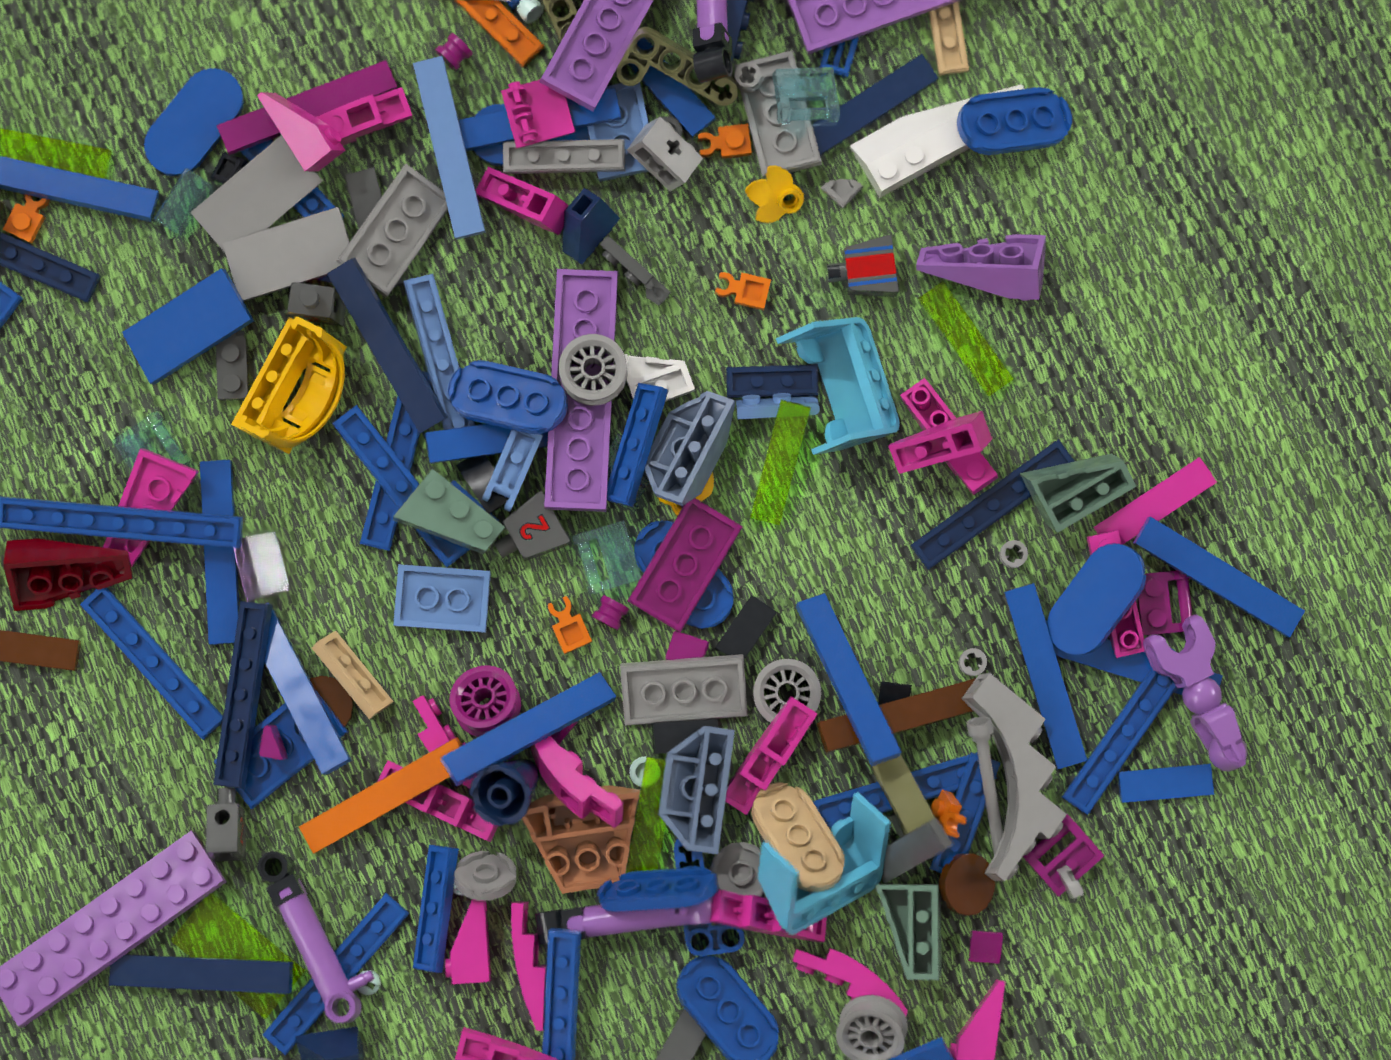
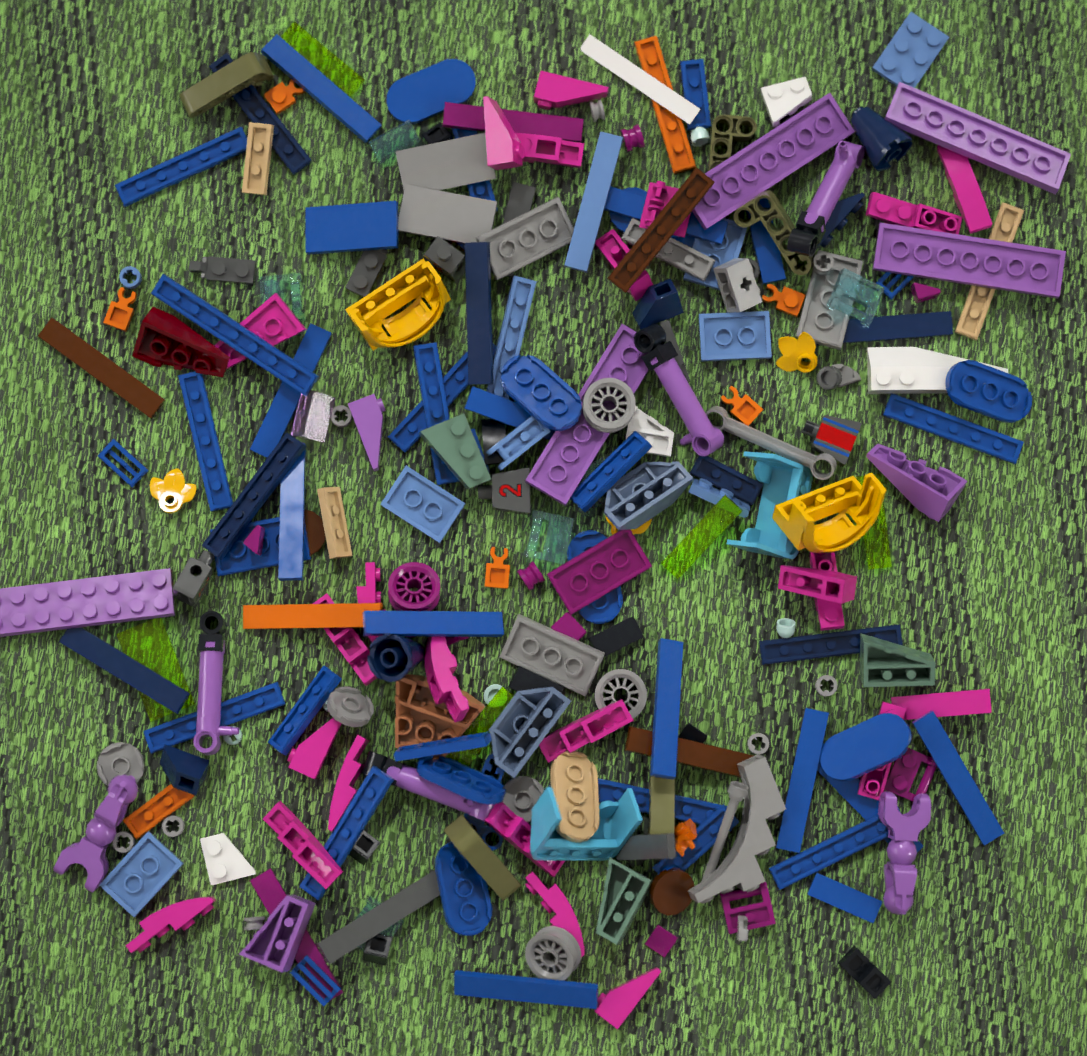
camera: 25 degrees right, 0 degrees up
(36, 305) = (257, 158): none -> tan plate
(68, 453) = (225, 269): none -> dark grey hinge
(97, 745) = (137, 476): none -> blue tile
(144, 735) = (172, 487): none -> yellow plate
(298, 557) = (341, 423): none -> light grey bush
(329, 537) = (369, 422): none -> medium lavender slope
(344, 41) = (561, 91): none -> dark pink slope
(396, 42) = (597, 110): none -> light grey bush
(543, 138) = (660, 230): none -> reddish brown tile
(589, 1028) = (364, 848): none -> black slope
(616, 863) = (442, 746): none -> blue tile
(624, 284) = (702, 434): none -> medium lavender piece
(693, 214) = (734, 336): none -> medium blue plate
(730, 965) = (482, 857): none -> olive beam
(799, 313) = (774, 444): none -> light grey piece
(826, 203) = (829, 377): none -> dark grey tile
(878, 376) = (847, 496): none -> yellow piece
(880, 49) = (923, 292): none -> magenta slope
(931, 513) = (785, 627): none -> light aqua hinge
(997, 185) = (953, 428): none -> blue tile
(1234, 855) = (864, 972): none -> black slope

